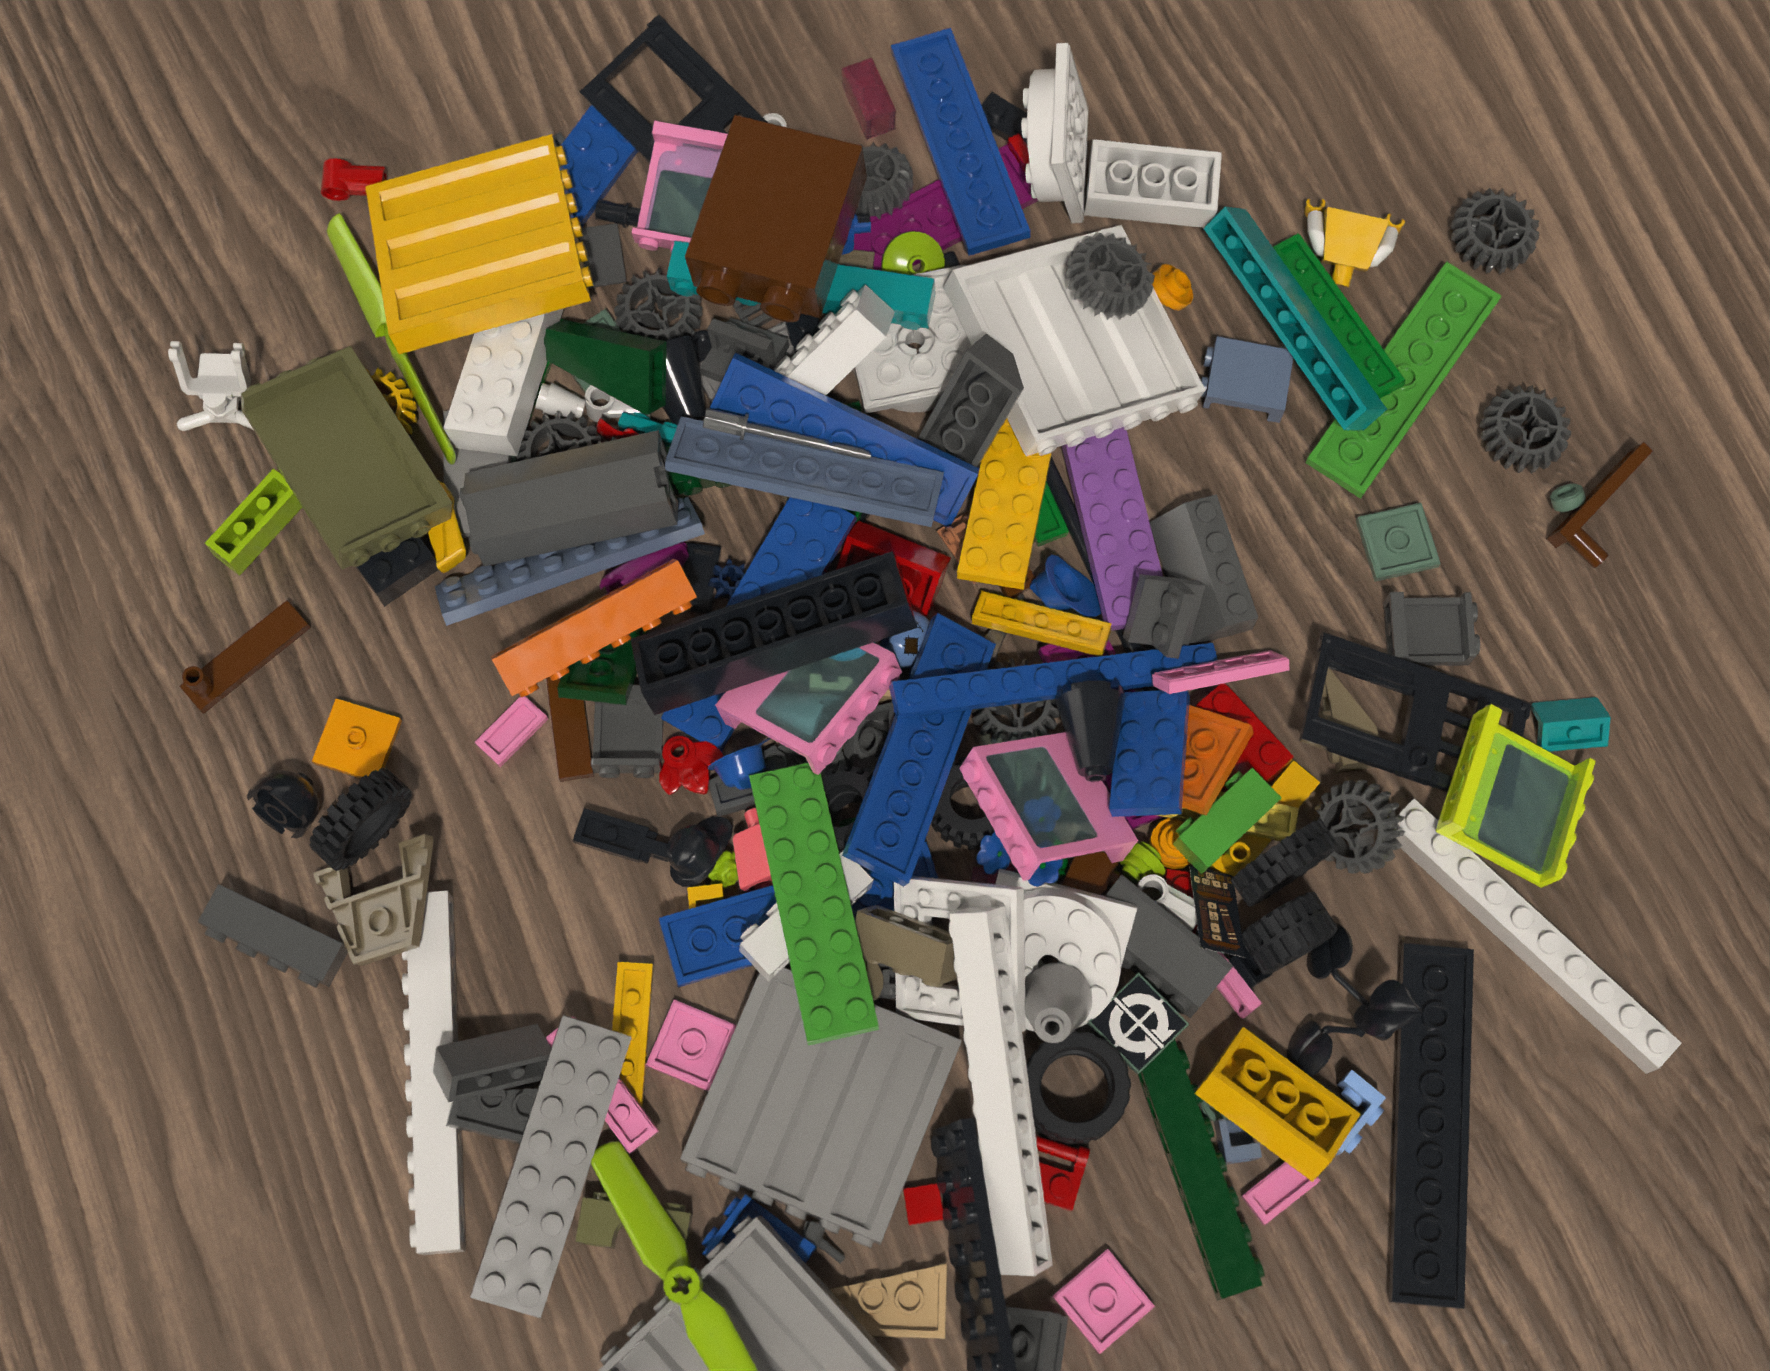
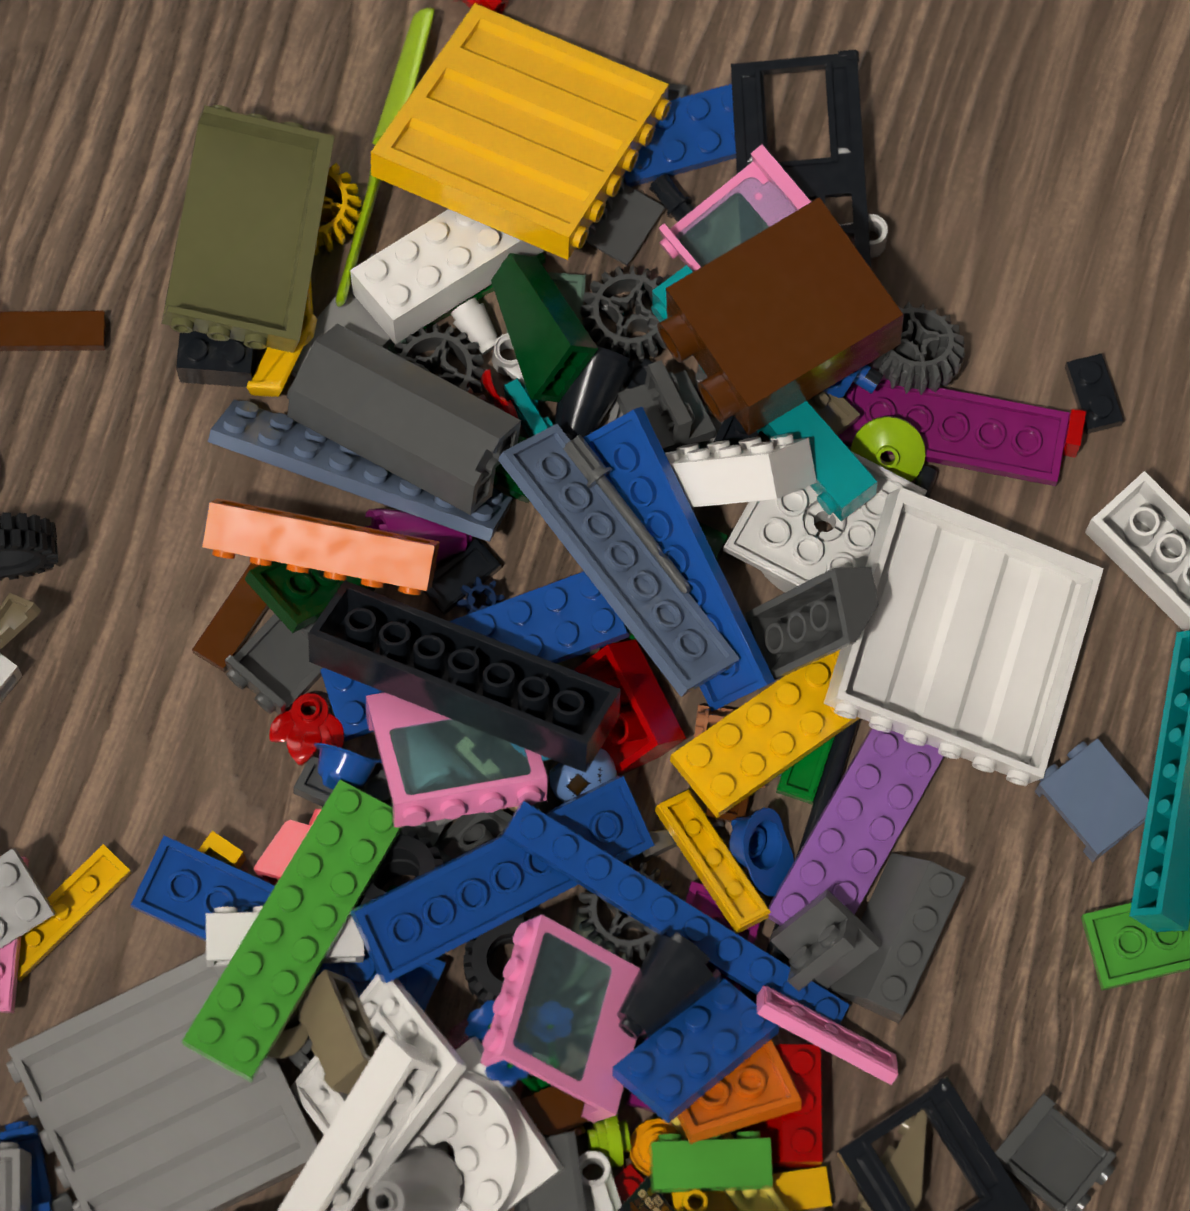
camera: 40 degrees right, 0 degrees up
(218, 383) = (202, 80): white piece -> none
(254, 523) = (129, 223): lime brick -> none
(356, 739) = (58, 477): light orange plate -> none
(511, 730) = (189, 576): bright pink tile -> none
(618, 837) = (197, 741): black hinge -> none
(691, 1045) = (102, 963): bright pink tile -> none
(696, 850) = (249, 805): black piece -> none
(725, 870) = (255, 840): lime plant -> none
(869, 98) = (983, 272): clear pink brick -> none
(960, 142) = (1026, 376): blue plate -> none
(1057, 134) = (1111, 440): white piece -> none
(1105, 285) = (1067, 613): dark grey gear -> none
(1172, 287) = (1101, 662): light orange plate -> none
(1398, 542) = (1099, 1057): sand green tile -> none

